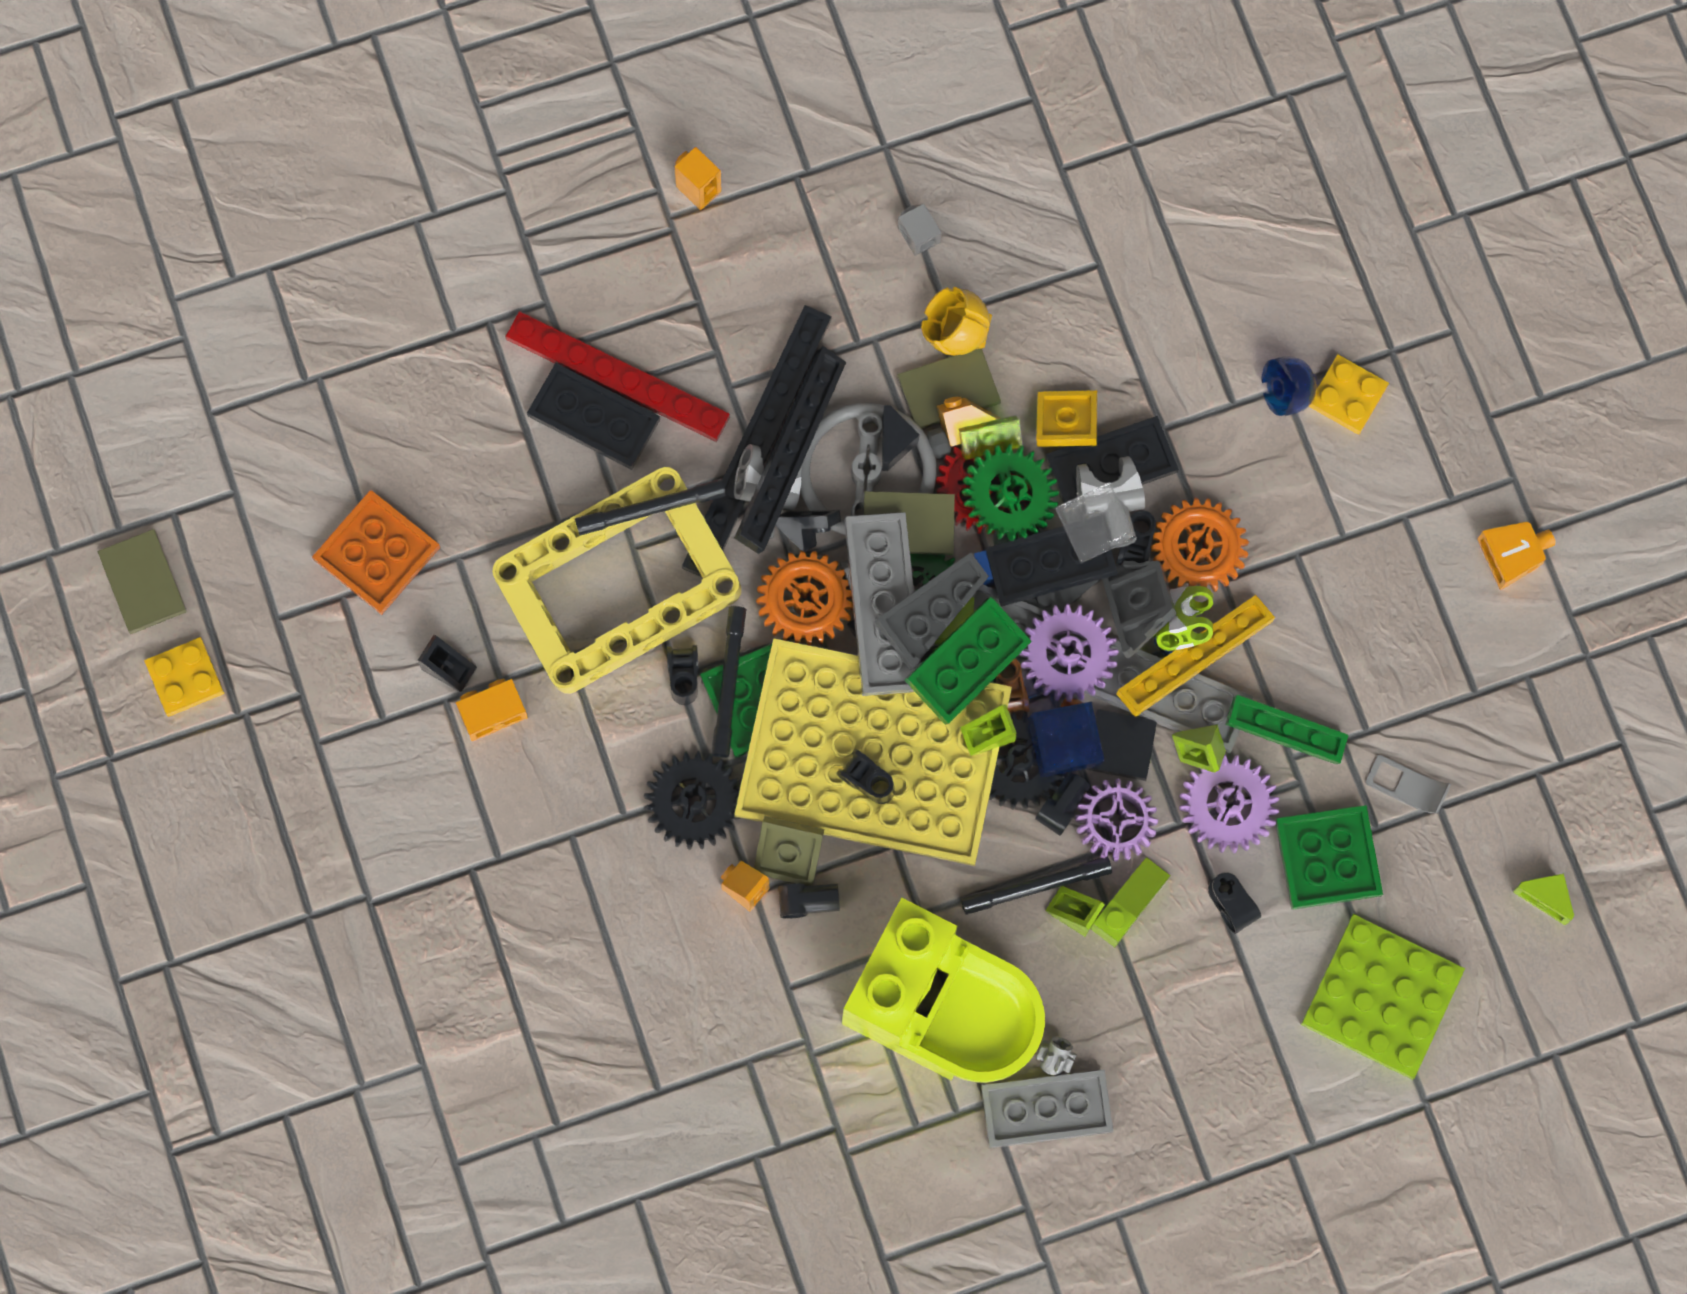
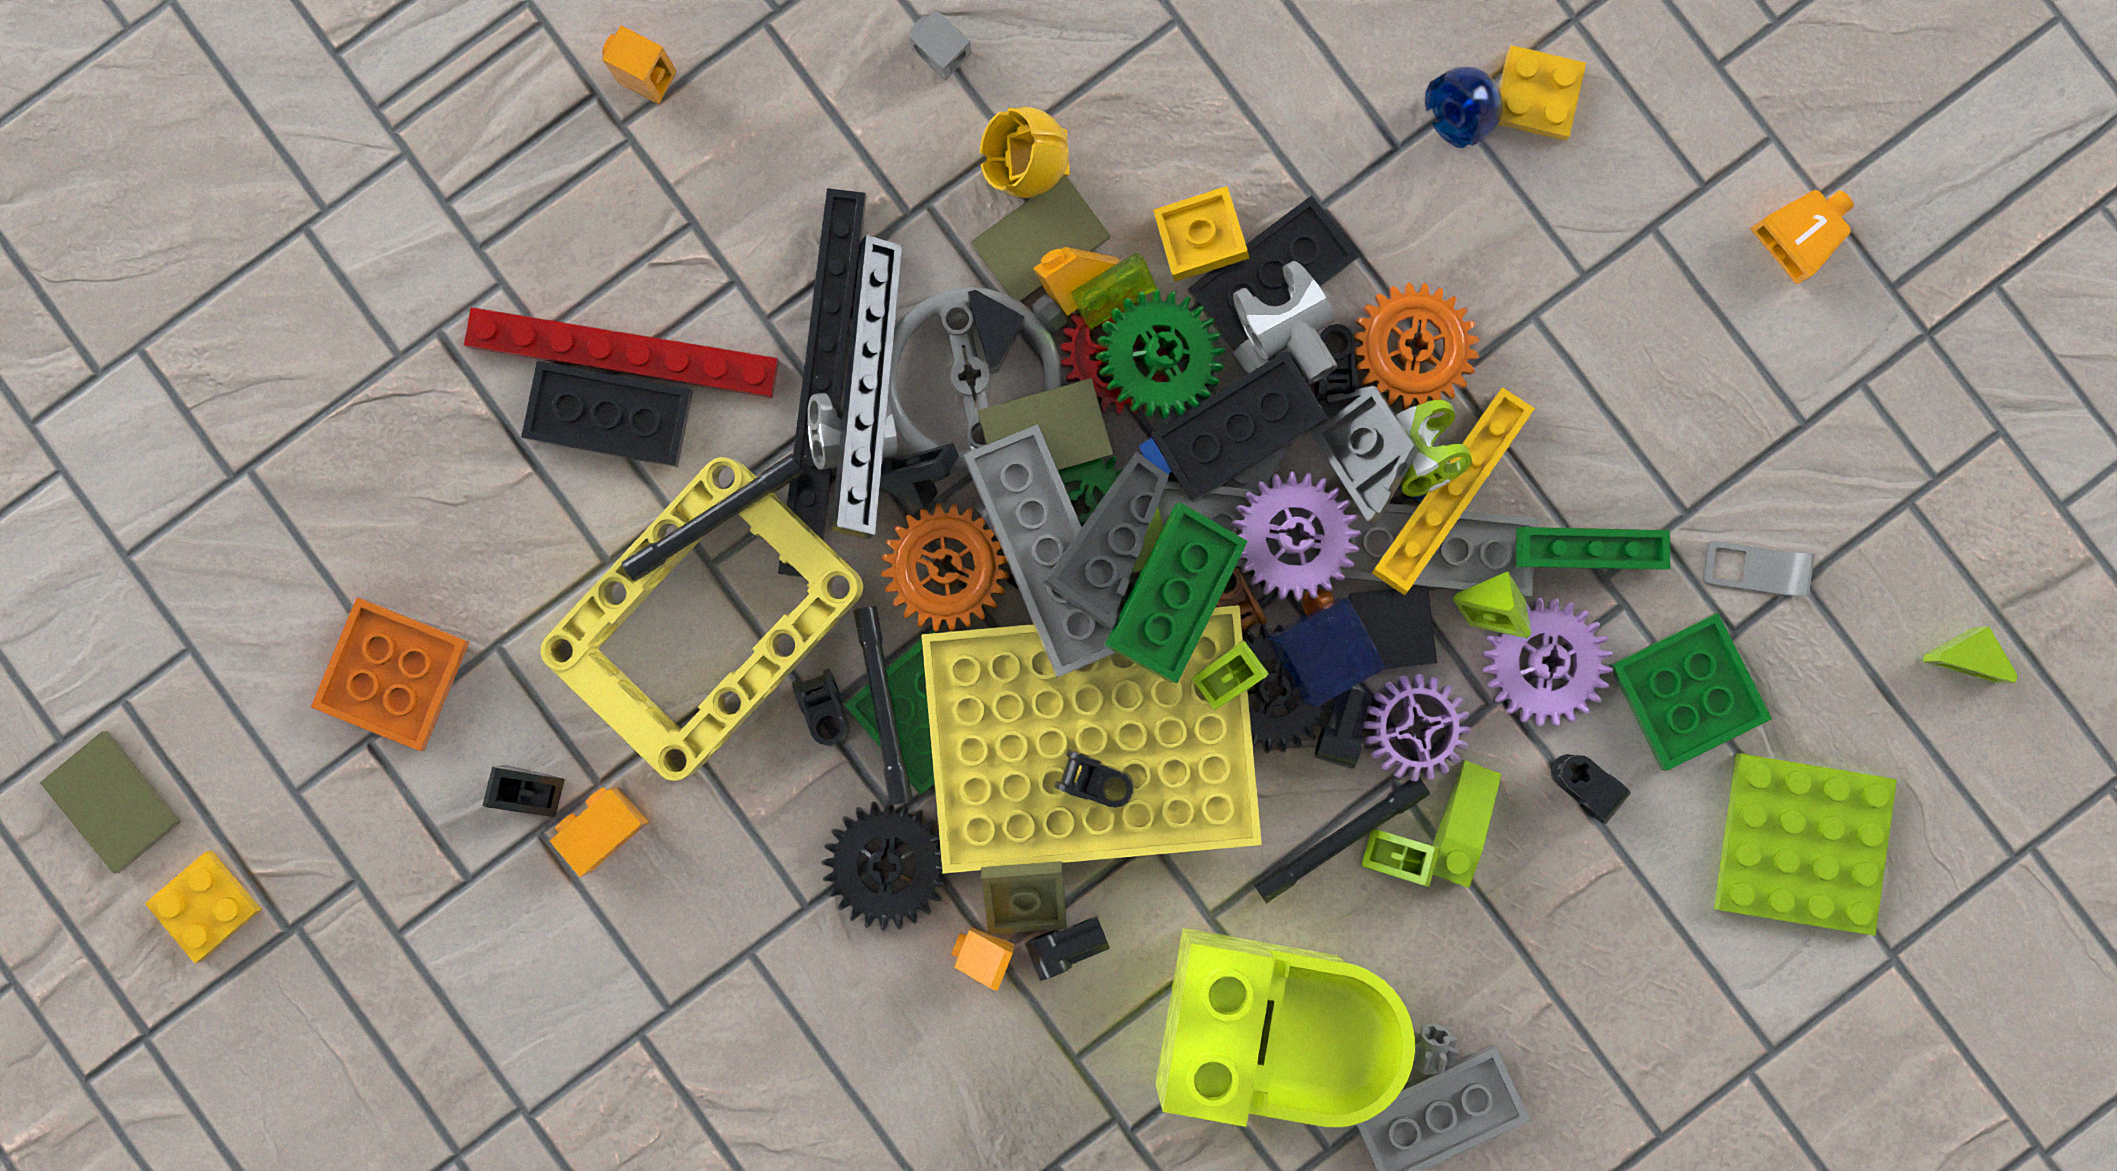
camera: 15 degrees left, 10 degrees up
(1095, 522) = (1282, 363): clear tile -> none

